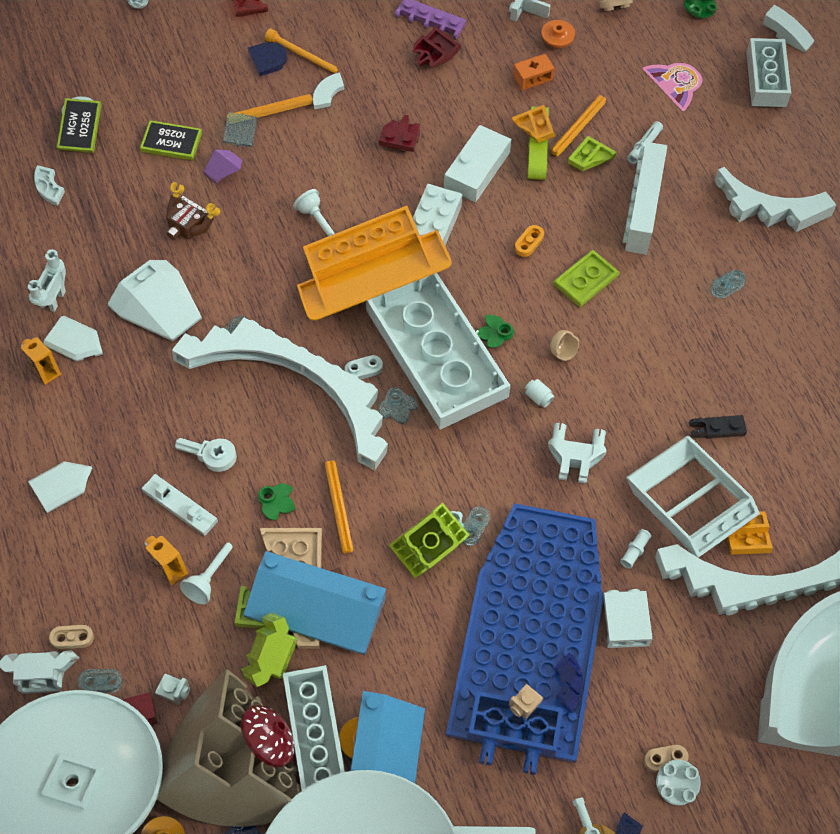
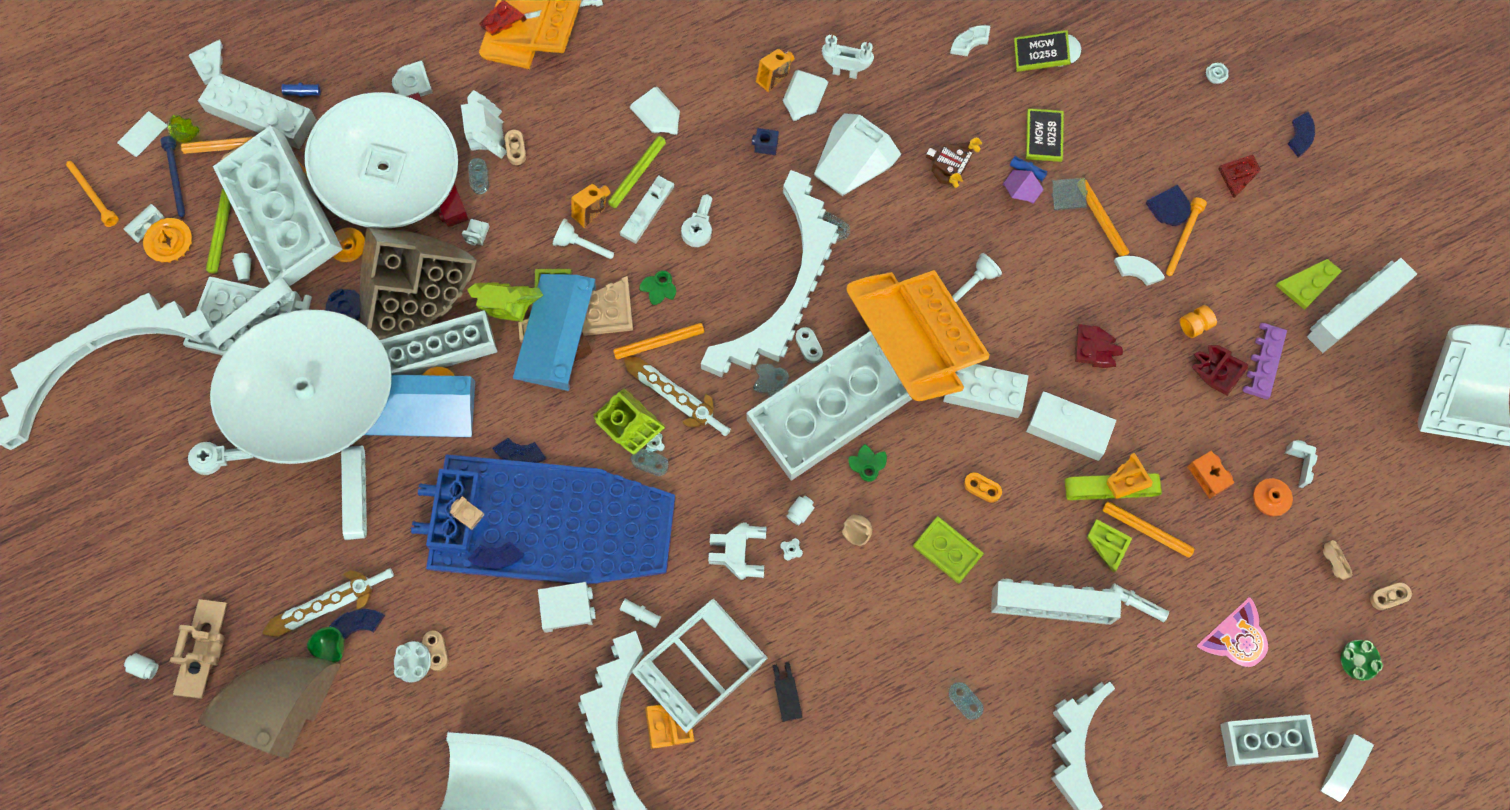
camera: 85 degrees right, 10 degrees up
(121, 372) = (765, 148): none -> dark blue brick
(130, 509) = (636, 172): none -> lime axle
(204, 157) = (1023, 165): none -> blue pin
(268, 735) = (423, 293): dark red dish -> none
(388, 54) = (1197, 321): none -> light orange wheel
(424, 473) = (700, 412): none -> sword
(450, 660) = (526, 453): none -> clear blue tile
(578, 411) = (788, 555): none -> light aqua plate

